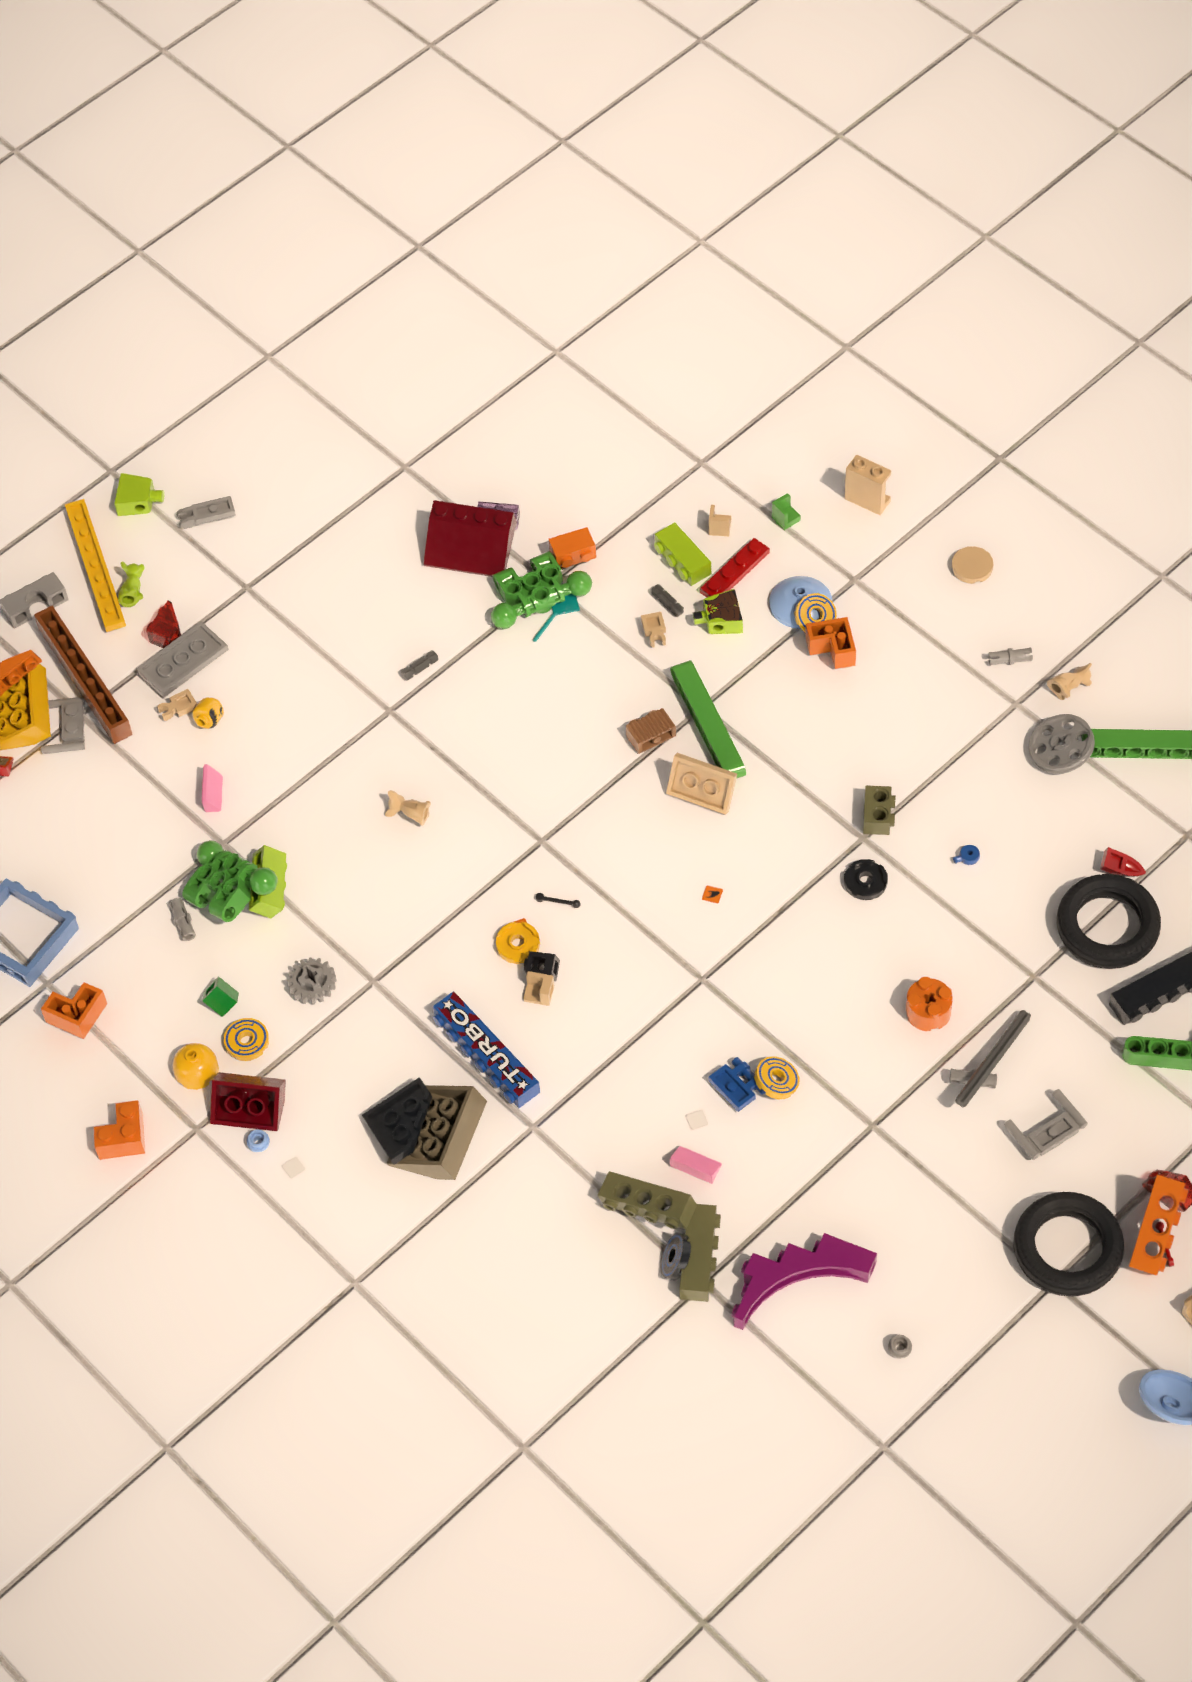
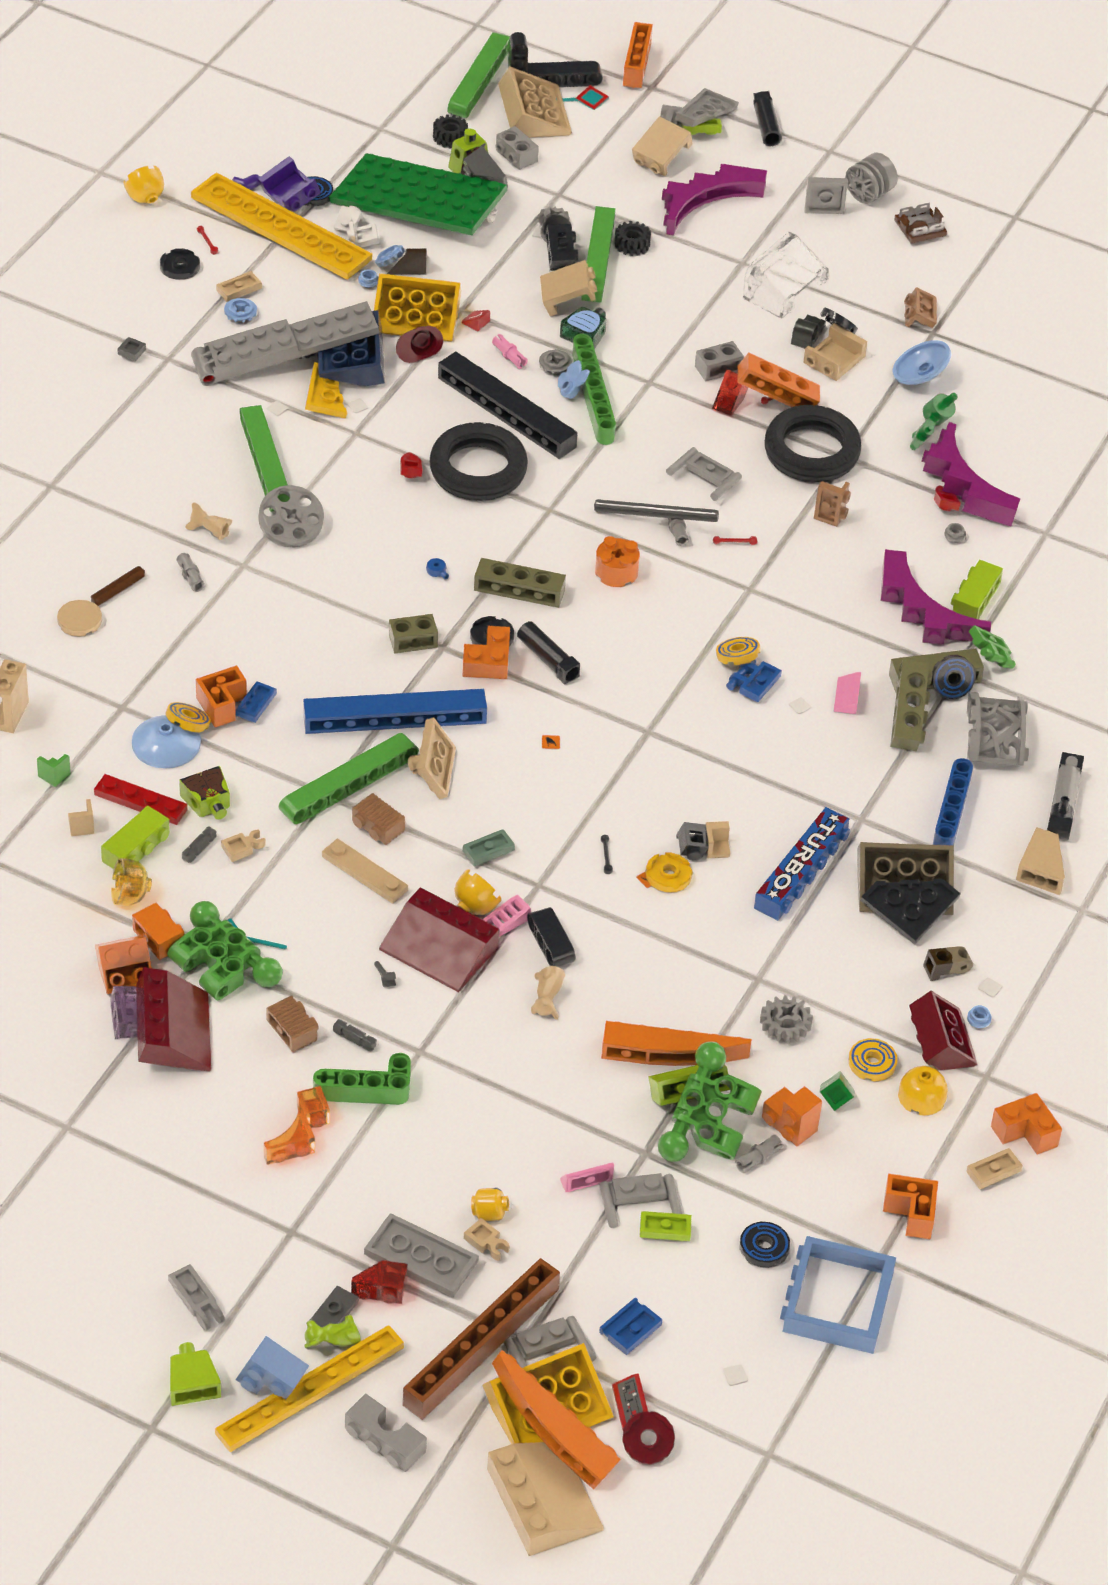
camera: 115 degrees left, 10 degrees down
(55, 780) = (630, 1326): none -> blue plate
(91, 1092) = (994, 1168): none -> tan plate
(92, 887) = (764, 1232): none -> black tile
(108, 531) = (272, 1367): none -> medium blue brick
(138, 830) = (665, 1226): none -> lime plate
(157, 593) = (335, 1307): none -> dark grey plate
(182, 824) = (636, 1190): none -> light grey plate
(205, 950) = (793, 1114): none -> orange brick
(317, 880) = (664, 1045): none -> orange slope
(326, 1132) = (947, 961): none -> leg
(348, 615) = (299, 1138): none -> clear orange arch
(354, 671) = (366, 1085): none -> bright green beam
(416, 1260) = (1042, 862): none -> tan slope
(444, 621) = (292, 1023): none -> medium nougat brick
(459, 1294) = (1065, 794): none -> piece
(470, 827) = (551, 937): none -> black beam
(472, 699) = (387, 978): none -> dark grey hand
(497, 747) = (440, 939): none -> slope
(511, 813) = (516, 908): none -> bright pink slope
(517, 1213) = (953, 802): none -> blue beam
(534, 779) = (475, 894): none -> yellow cylinder
(548, 520) = (122, 961): none -> orange slope
(577, 1249) = (1012, 710): none -> light grey fence
(591, 807) = (488, 847): none -> sand green plate
(598, 712) = (365, 870): none -> tan plate
(631, 537) = (130, 882): none -> clear yellow cylinder
(716, 1312) = (992, 647): none -> bright green plate
(779, 774) = (394, 711): none -> blue brick
(802, 1332) = (977, 589): none -> lime brick
(821, 915) = (549, 652): none -> black piece
(824, 862) = (488, 659): none -> orange brick
(825, 672) = (256, 702): none -> blue plate
(938, 887) = (519, 582): none -> olive brick
(948, 1112) = (752, 540): none -> red hinge
(956, 1354) = (945, 500): none -> red plate
(959, 1225) = (832, 503): none -> medium nougat bracket
(975, 1371) = (959, 479): none -> magenta arch
(1006, 599) = (118, 585): none -> reddish brown axle
(1089, 1389) = (935, 413): none -> green piece

